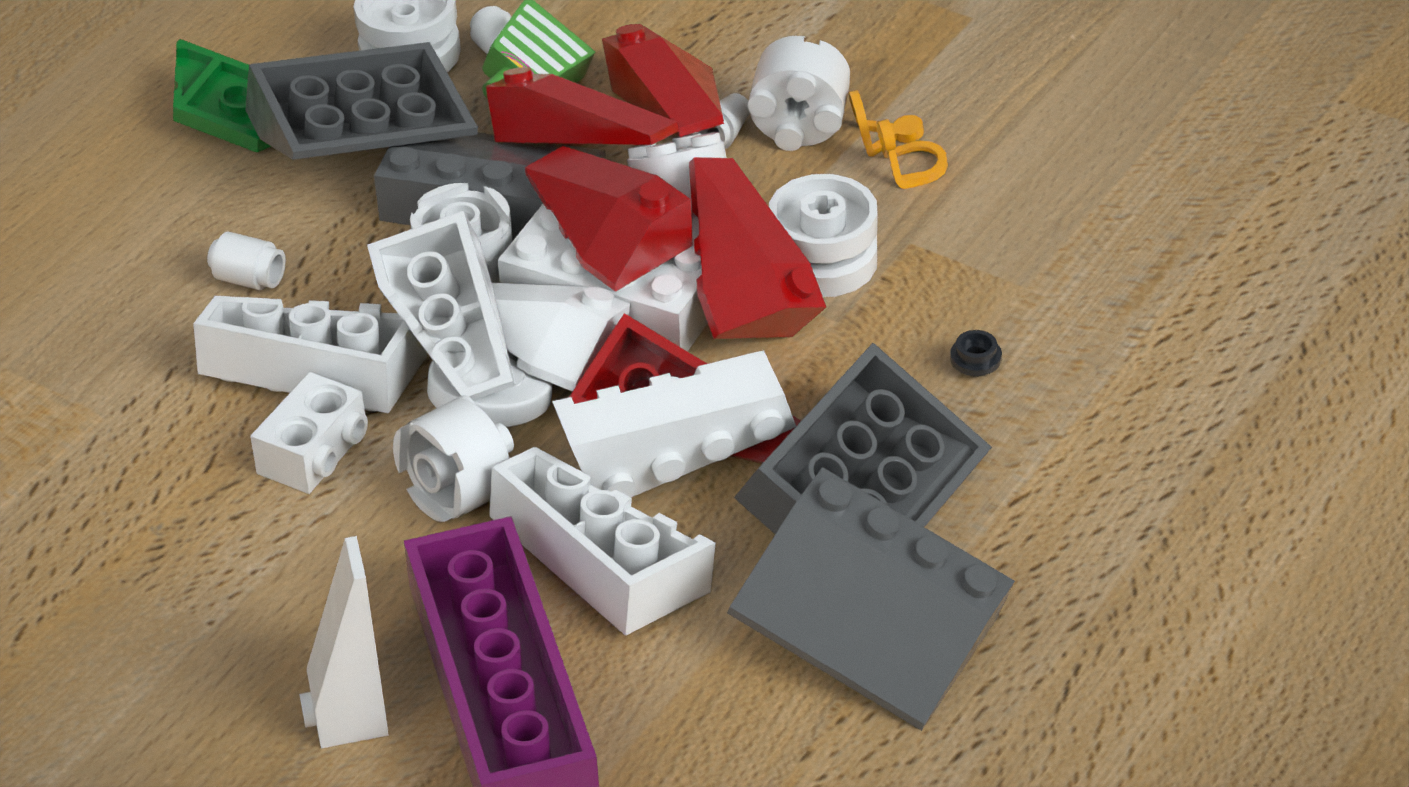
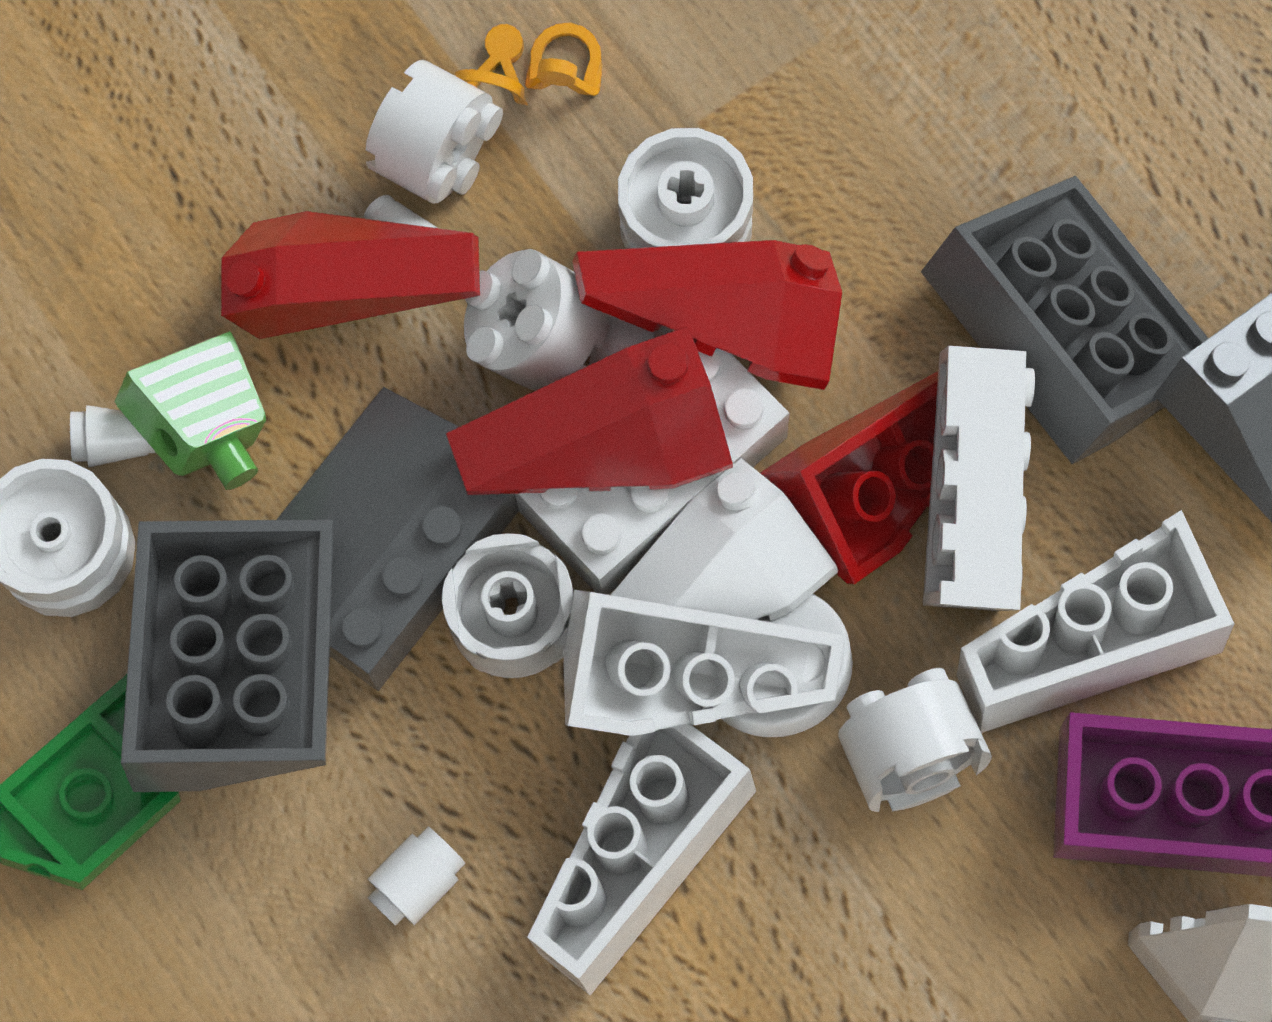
camera: 65 degrees left, 30 degrees up
(309, 432) = (754, 901): white brick -> none
(560, 111) = (372, 398): red wedge -> none
(976, 353) = (930, 116): black plate -> none

